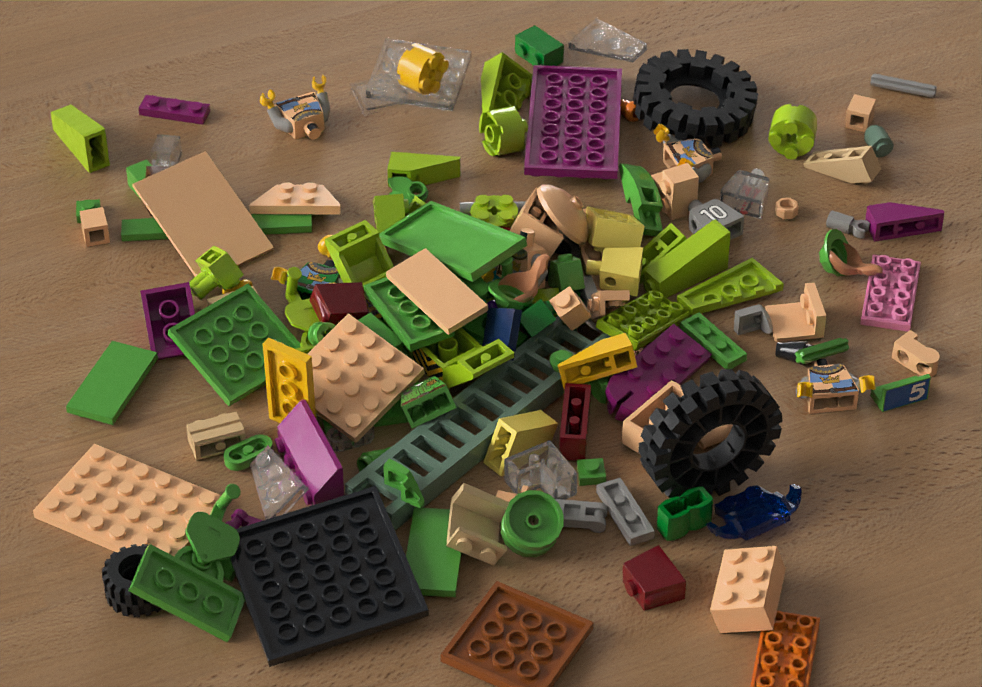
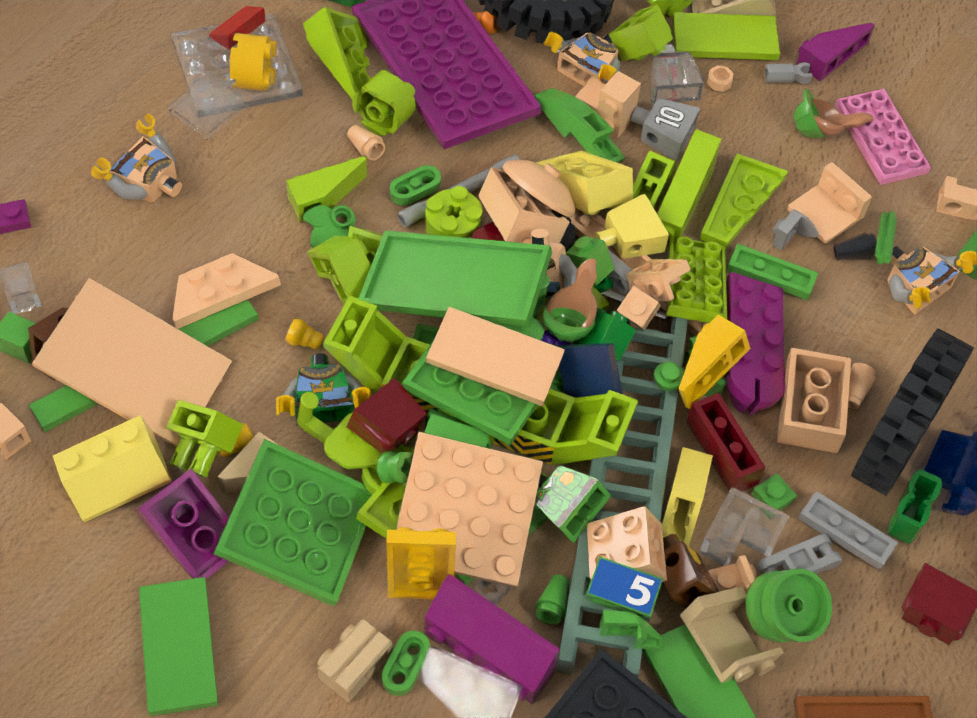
camera: 35 degrees left, 15 degrees up
(143, 267) = (112, 468): none -> light yellow slope
(415, 454) = (623, 588): none -> blue panel
(446, 47) = (242, 22): none -> red slope
(449, 436) = (628, 539): none -> light nougat bracket
(473, 154) = (366, 142): none -> light nougat cone
(475, 471) = (685, 572): none -> reddish brown torso
(487, 188) = (414, 185): none -> bright green plate
(742, 153) = (642, 34): none -> lime brick
(817, 182) = (726, 35): none -> lime tile

